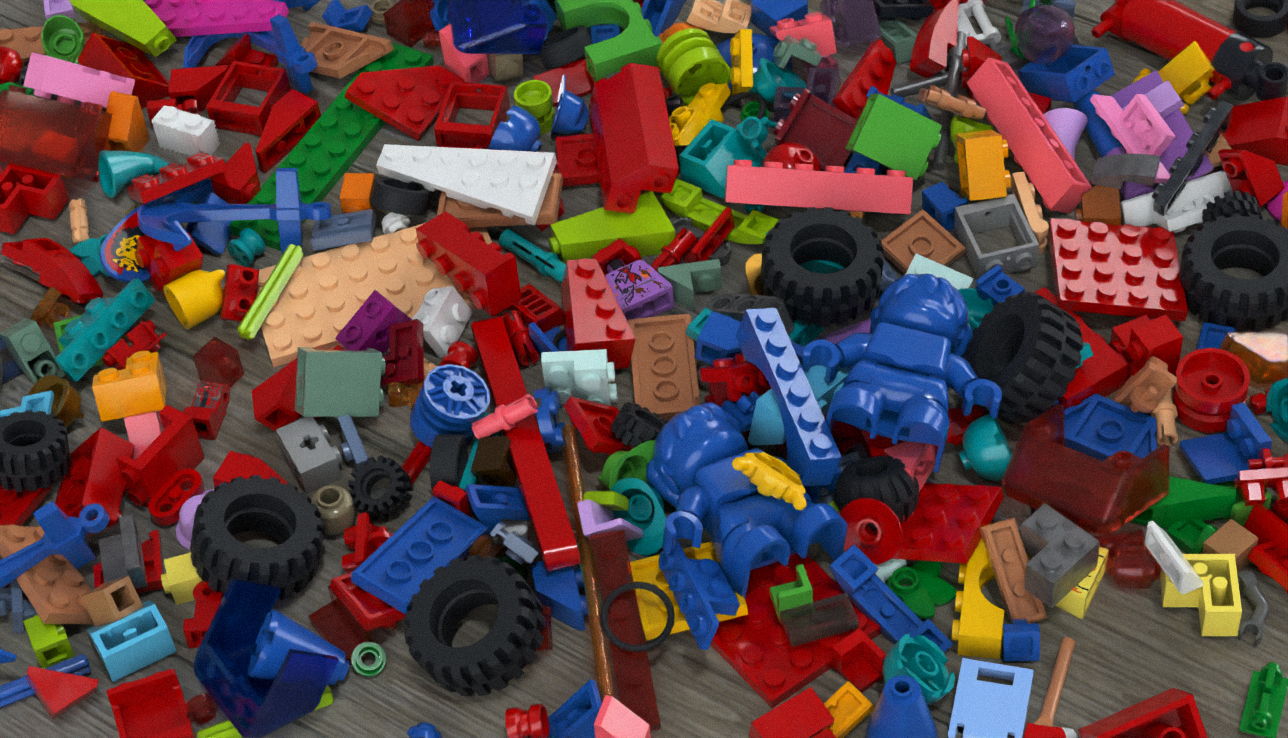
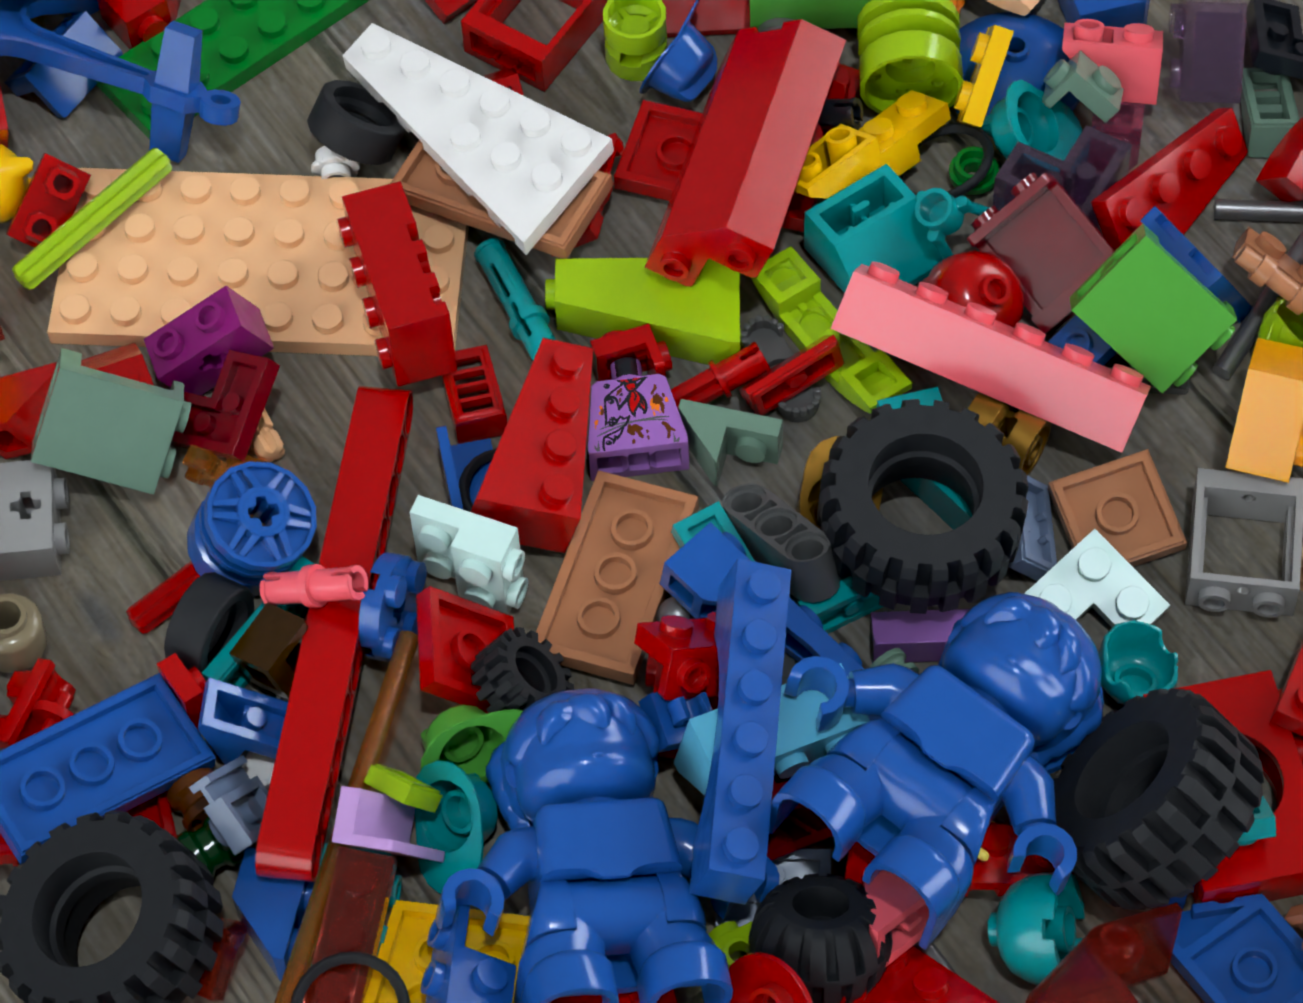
camera: 20 degrees right, 10 degrees up
(246, 247) = (99, 122): teal wheel -> none
(343, 229) = (253, 147): sand blue plate -> none
(352, 447) = (93, 537): sand blue plate -> none
(357, 192) = (296, 91): orange brick -> none
(391, 499) = (74, 608): black tyre -> none
(443, 318) = (322, 362): white bracket -> none
(460, 354) = (314, 444): red wheel -> none
(518, 132) = (580, 81): blue cylinder -> none
(520, 338) = (422, 438): red pin -> none
(772, 477) = (643, 871): yellow piece -> none
(941, 204) = (1184, 448): blue brick -> none
(997, 286) = (1192, 631): blue brick -> none

